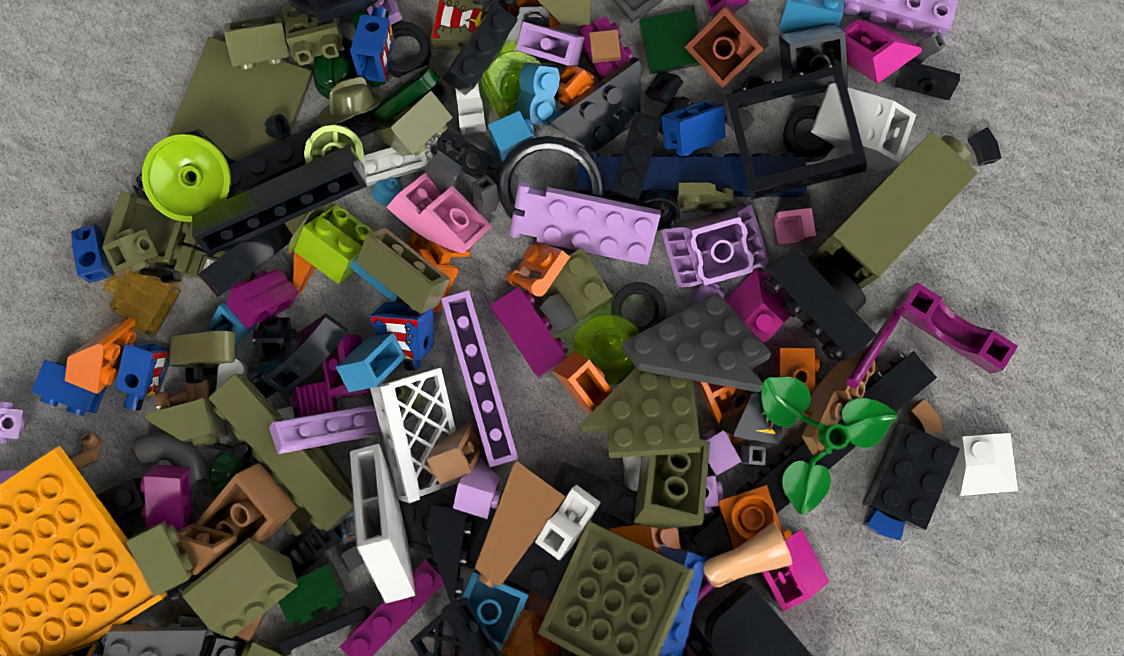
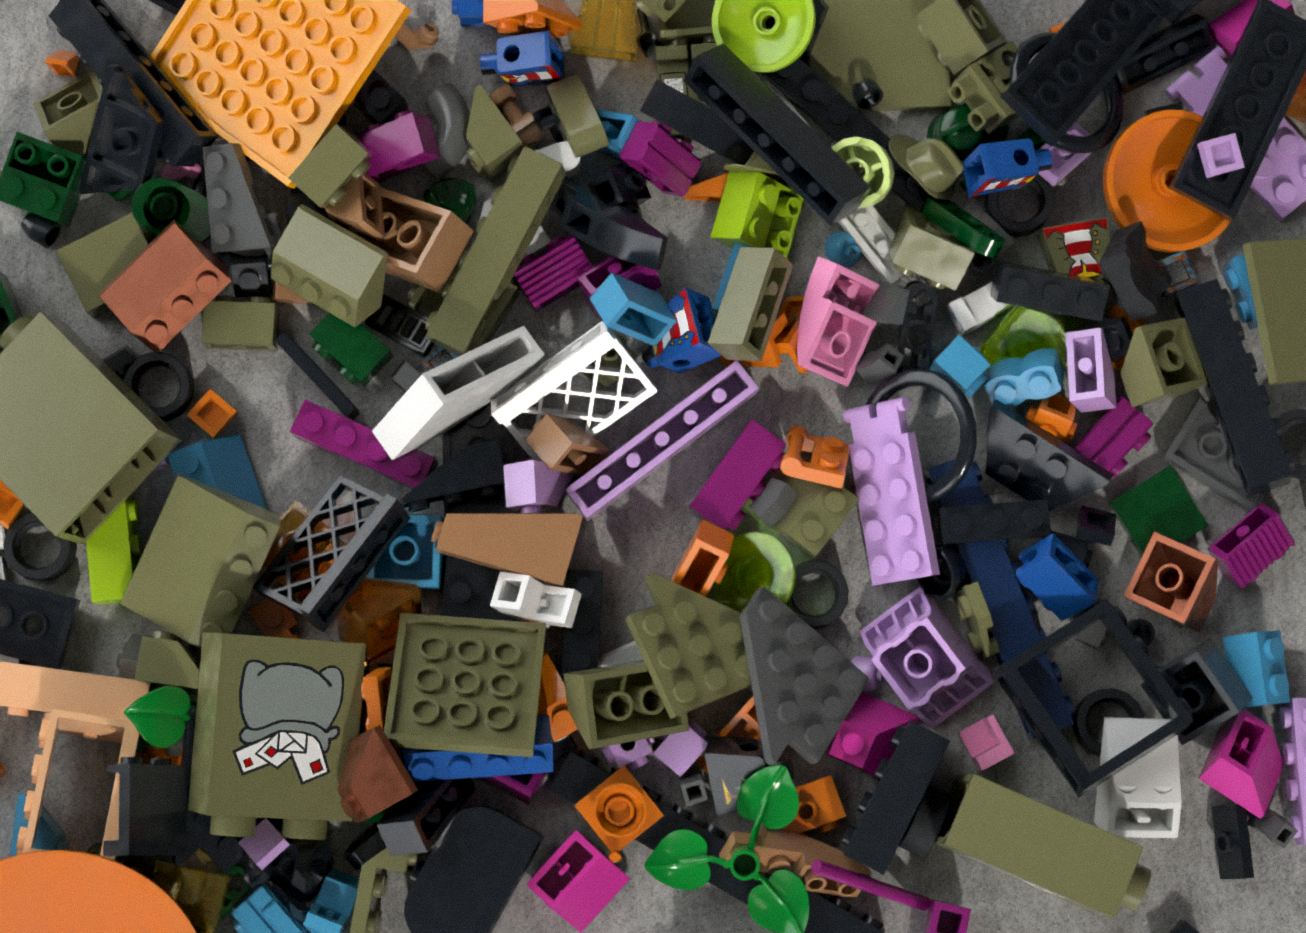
camera: 70 degrees right, 0 degrees up
(241, 451) = (478, 205): black hand -> none
(324, 429) = (538, 288): lavender tile -> none
(605, 46) = (1113, 435): medium nougat tile -> none
(759, 554) = (579, 827): light nougat piece -> none

